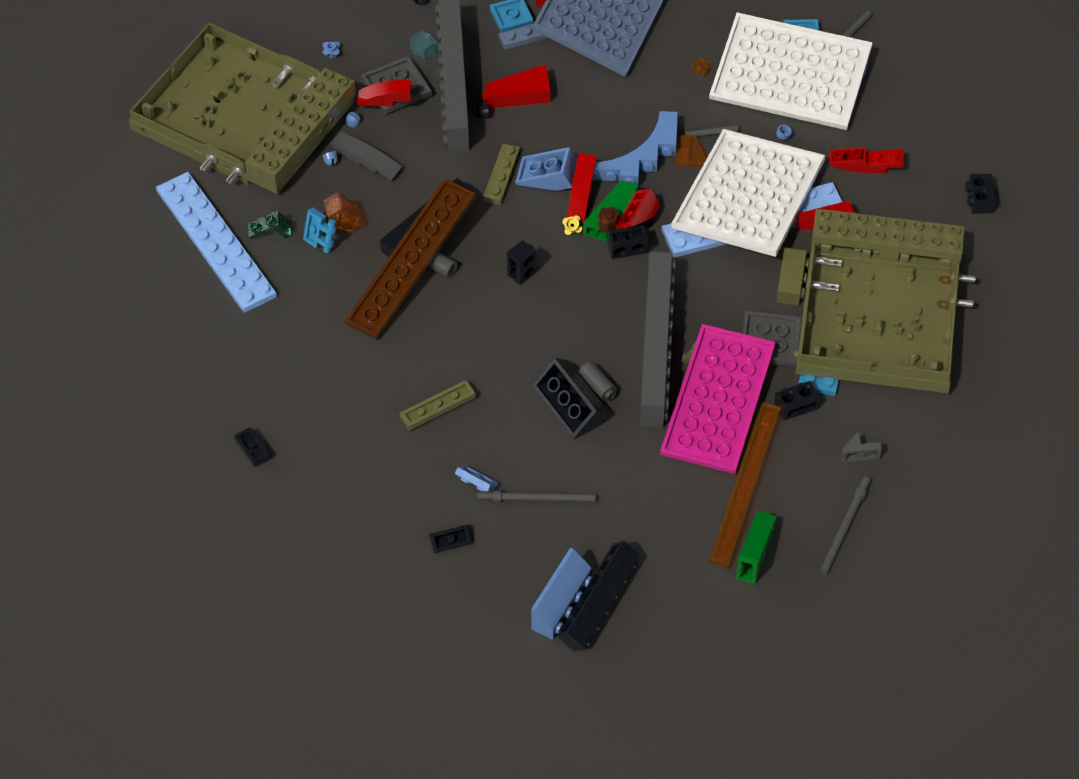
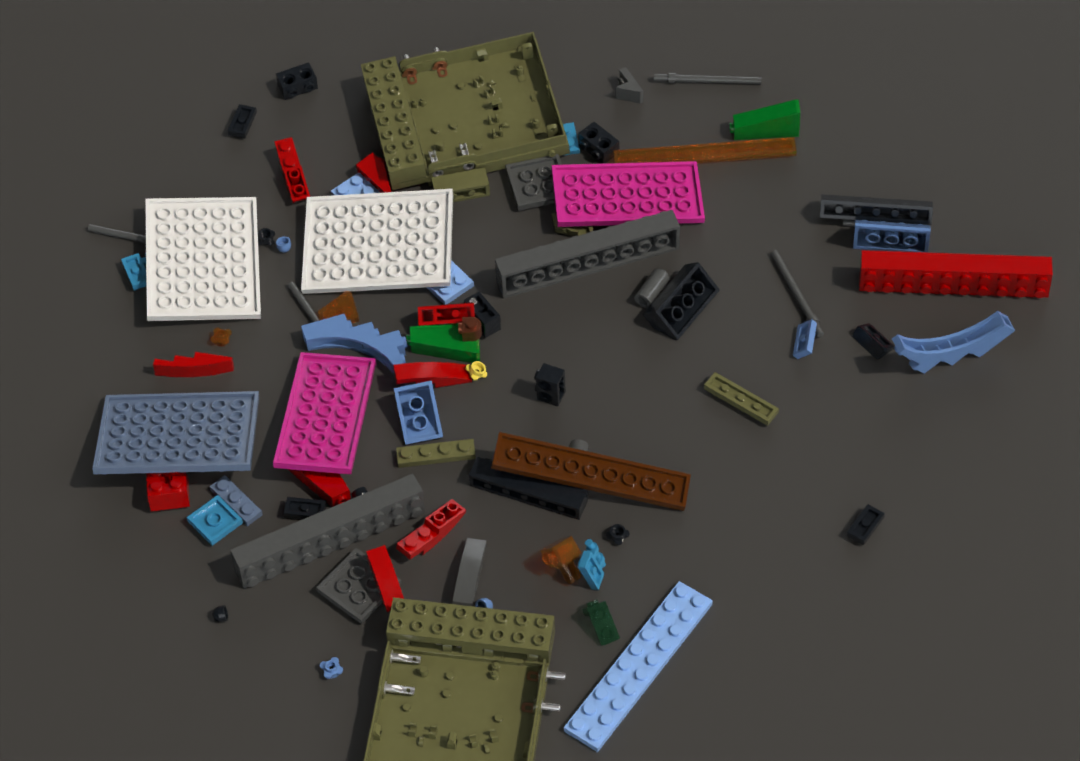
camera: 110 degrees left, 0 degrees up
(348, 268) = (617, 529): none -> black plate
(398, 584) = (951, 348): none -> medium blue arch
(420, 142) = (432, 531): none -> red slope
(423, 45) = (293, 581): clear light blue brick -> none
(480, 627) = (955, 273): none -> red brick
(490, 71) = (302, 508): none -> black plate
(574, 102) = (325, 413): none -> dark pink plate
(676, 39) = (201, 365): none -> red slope
(799, 124) = (265, 236): none -> black plate
(947, 142) = (242, 121): none -> black plate

